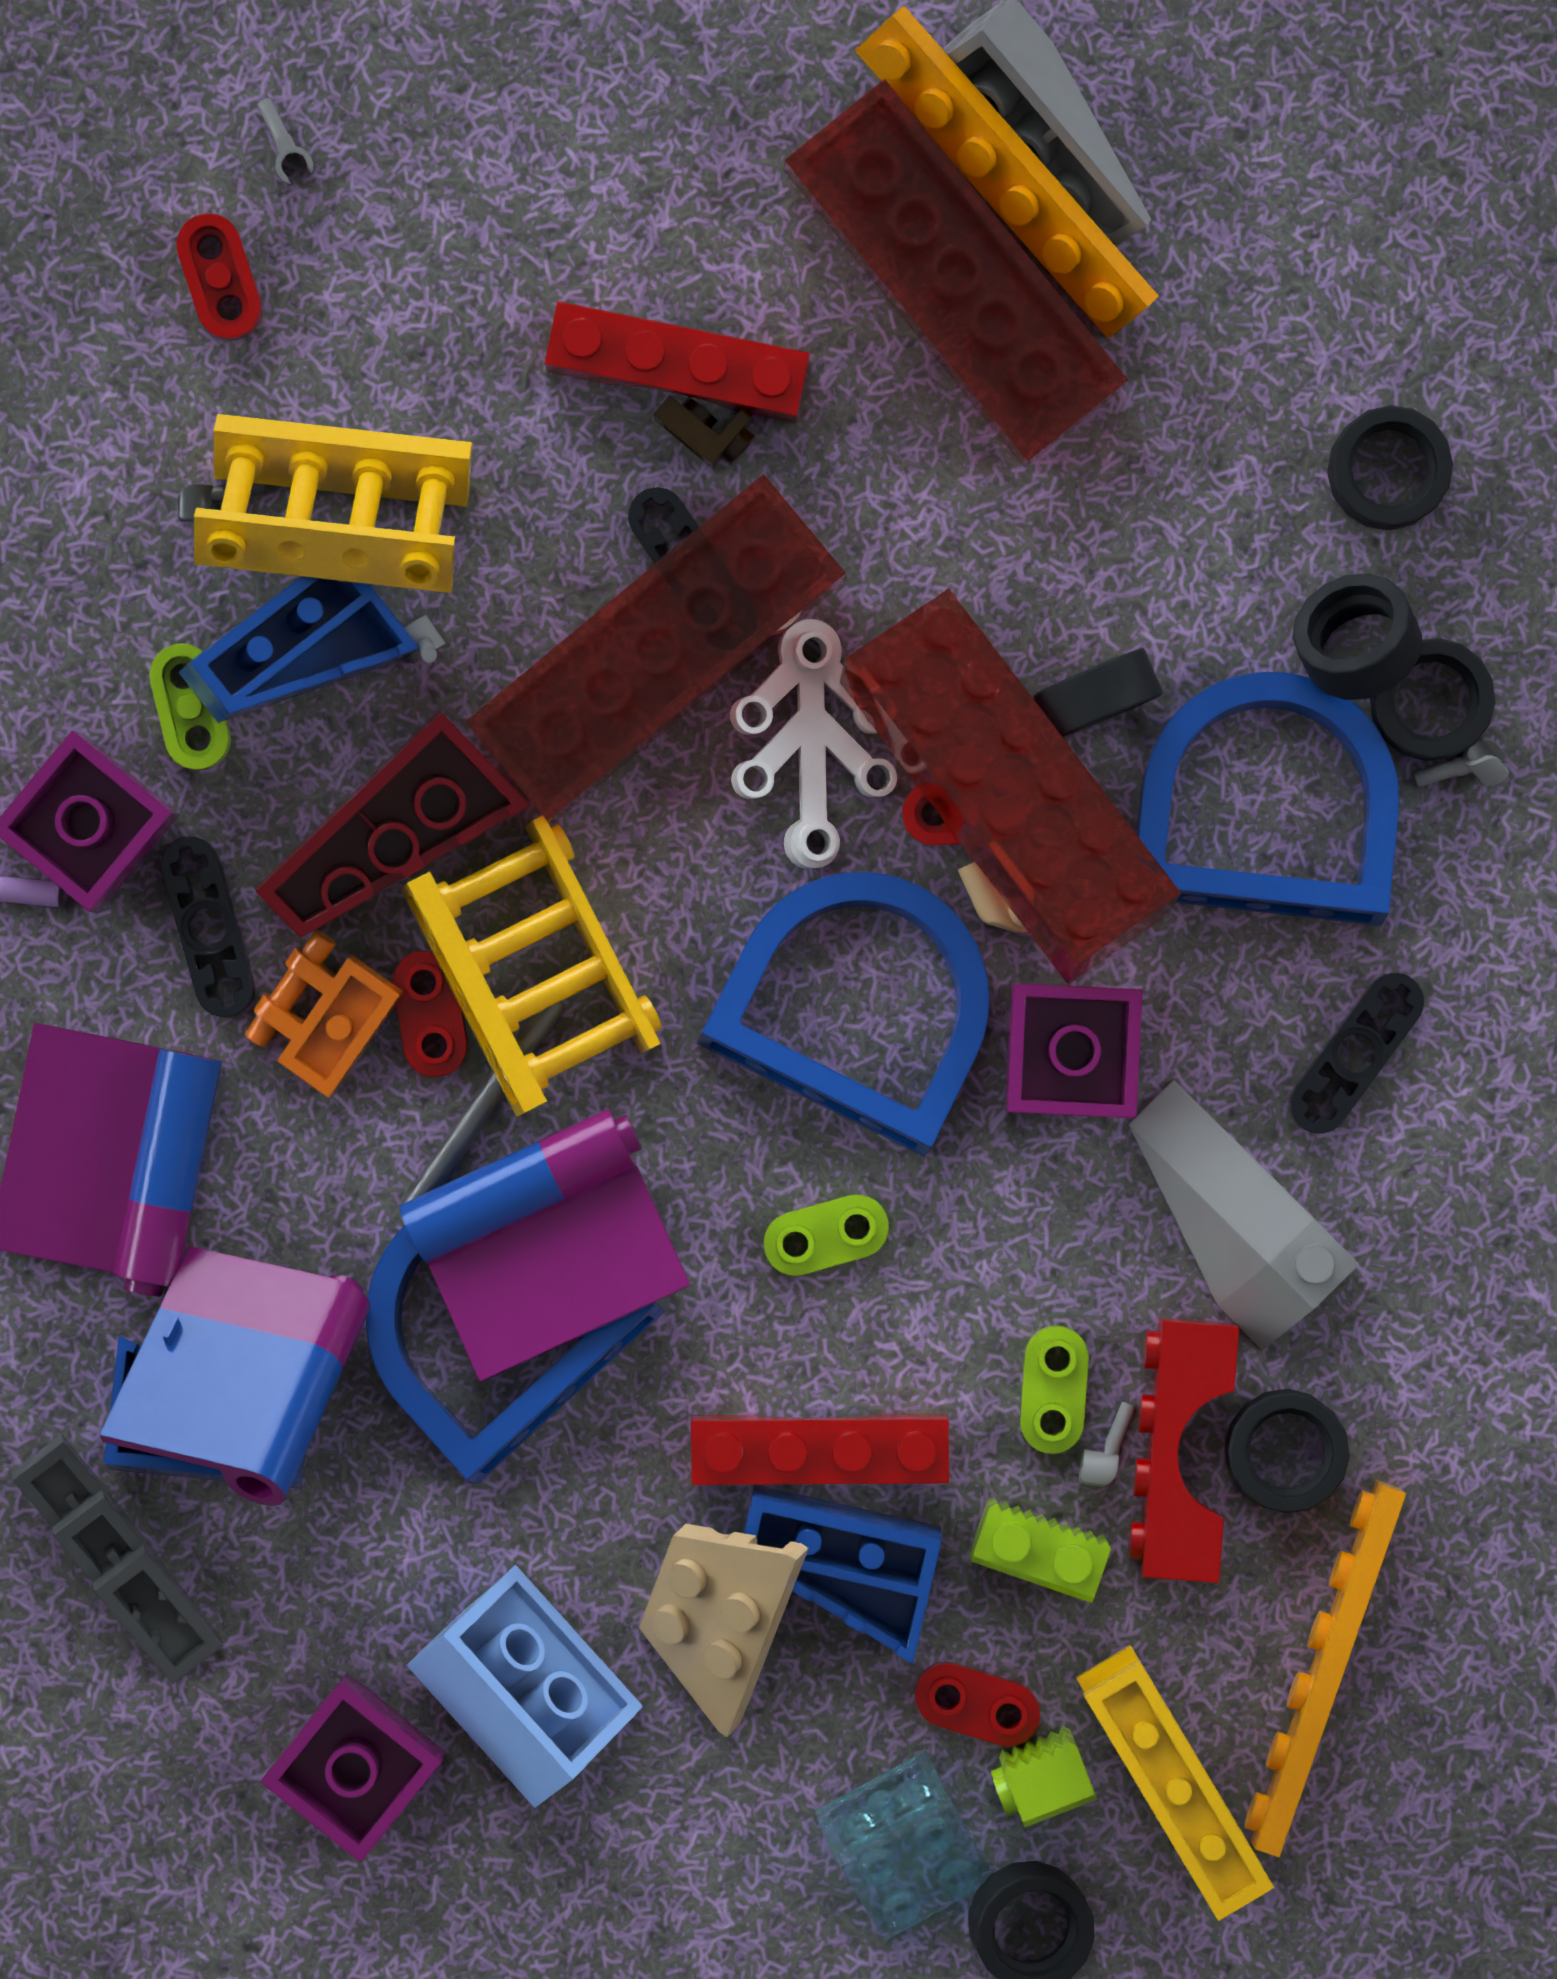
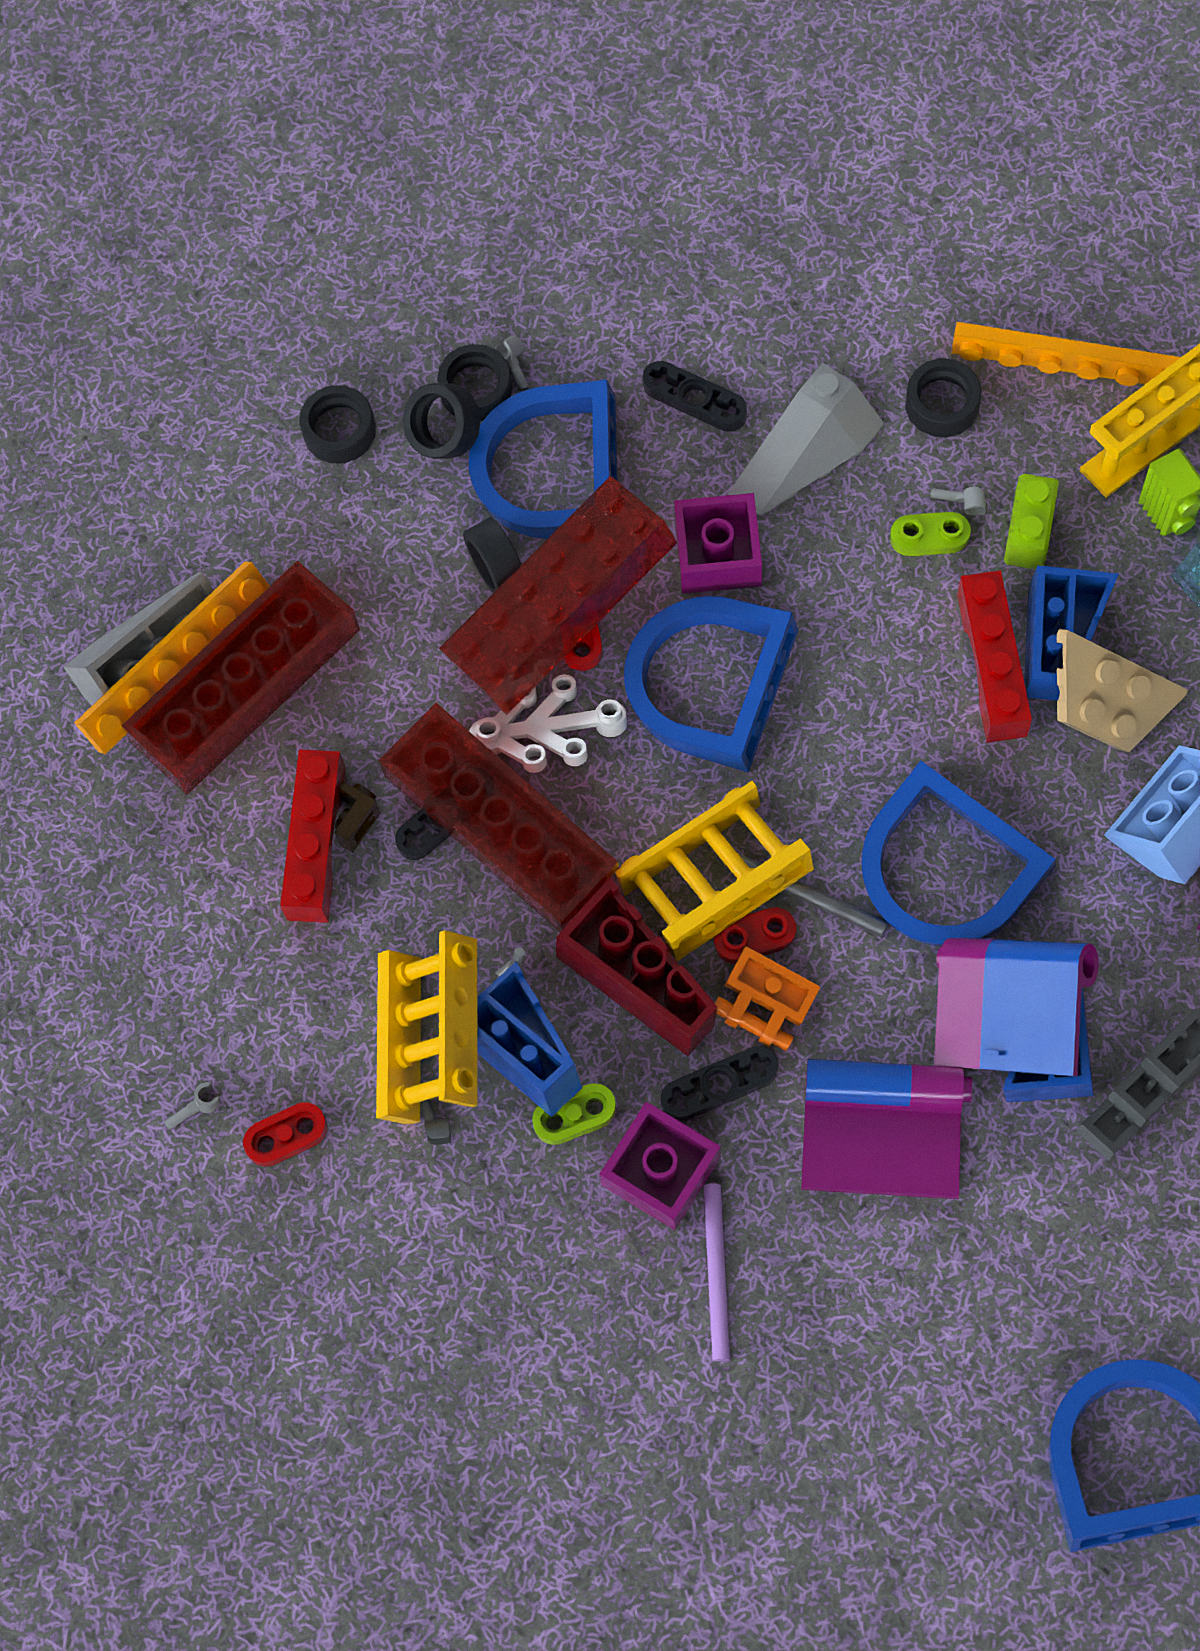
camera: 85 degrees left, 20 degrees down
(546, 1244) = (893, 832): magenta door -> none
(826, 1234) = (857, 675): lime plate -> none
(978, 1703) = (1135, 548): red plate -> none
(987, 901) = (633, 609): tan arm -> none
(1190, 1366) = (905, 456): red arch -> none

